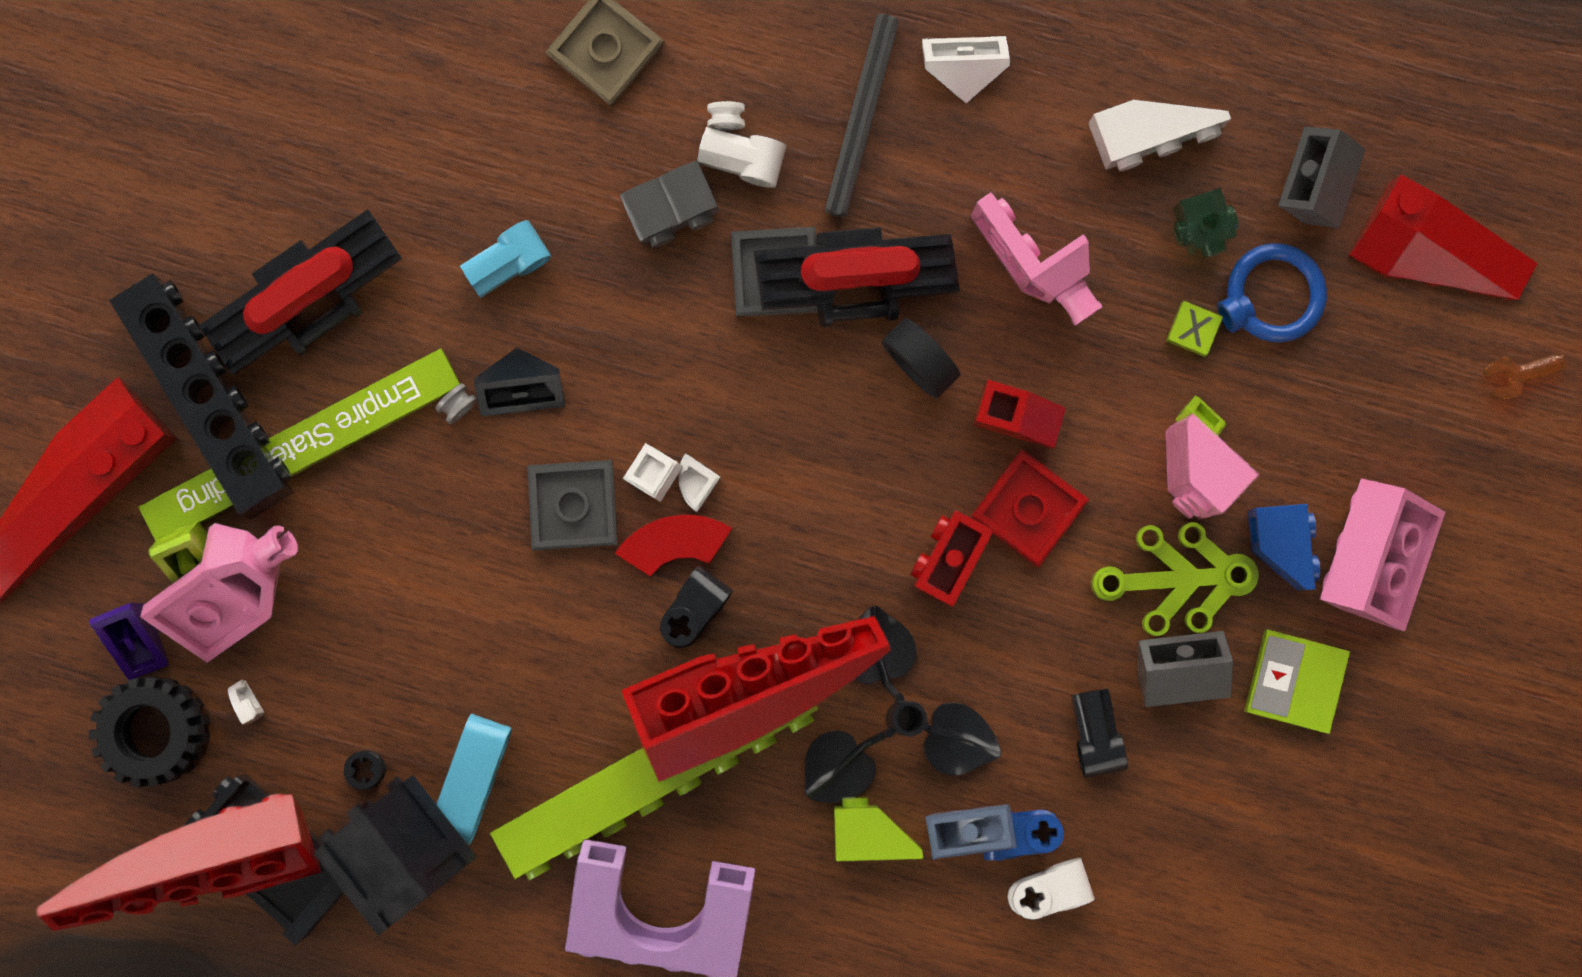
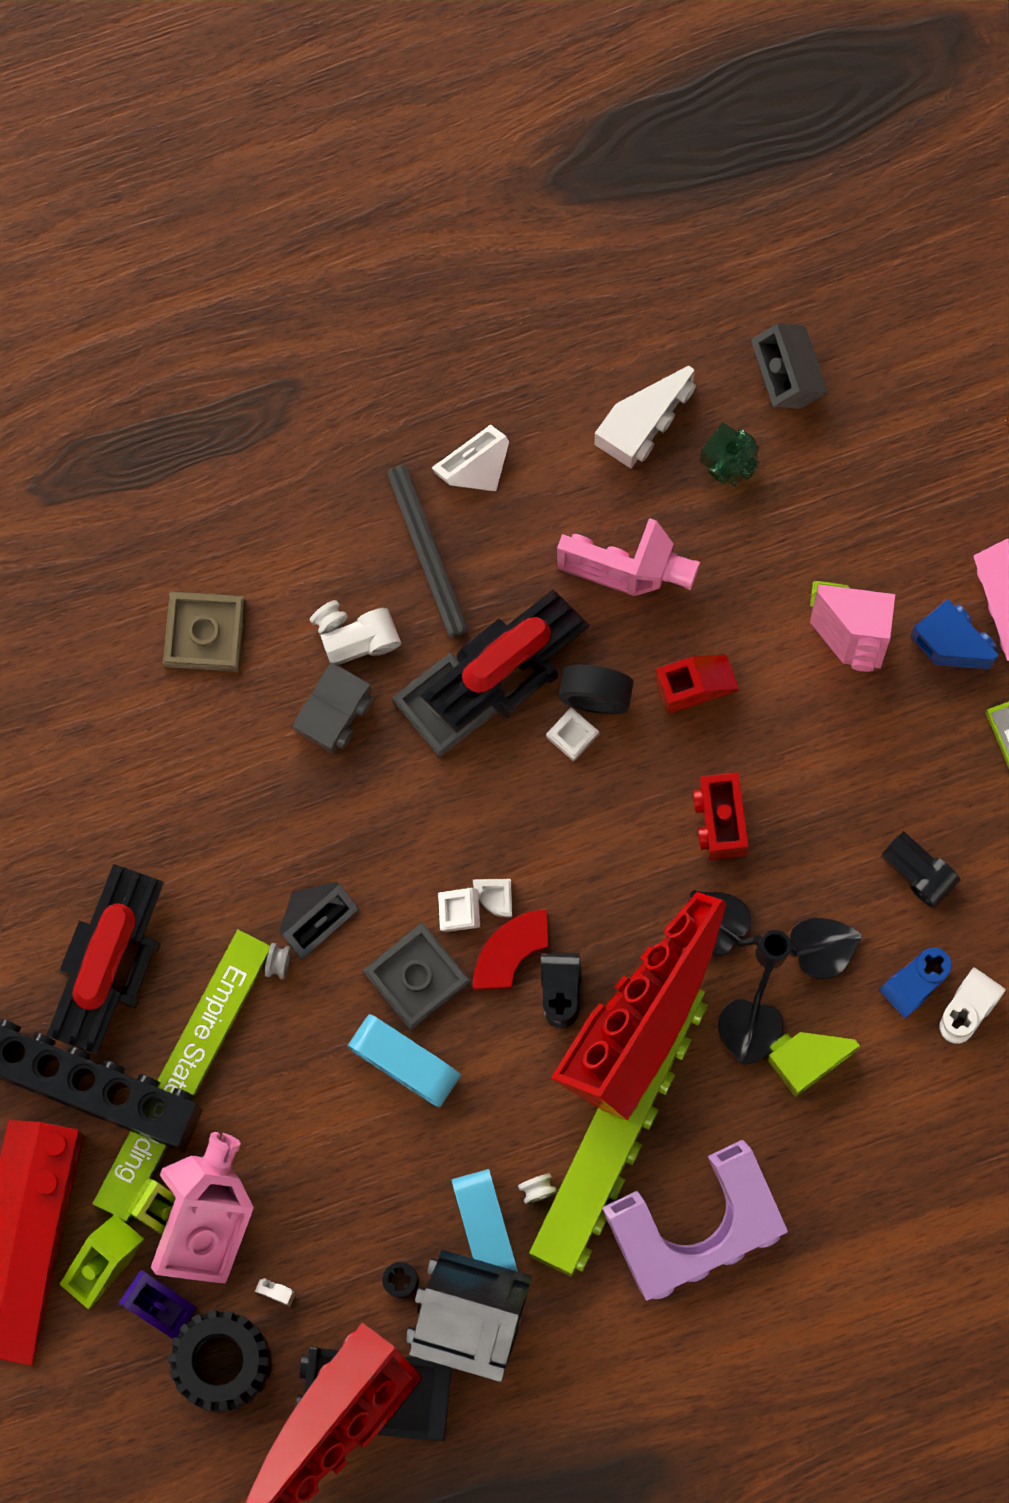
camera: 25 degrees left, 10 degrees down
(109, 564) = (101, 1260): none -> lime slope
(505, 575) = (404, 1060): none -> medium azure beam
(514, 254) = (243, 823): medium azure piece -> none
(542, 777) = (537, 1188): none -> white bush
(872, 382) = (572, 734): none -> white tile
(970, 831) = (880, 1001): sand blue slope -> none
(1029, 508) = (753, 743): red tile -> none
(1183, 578) = (900, 716): lime plant -> none
(1184, 669) = (947, 777): dark grey brick -> none
(1194, 328) = (777, 535): lime tile -> none
(1239, 311) = (799, 500): blue piece -> none
(1436, 243) = (905, 356): red wedge -> none

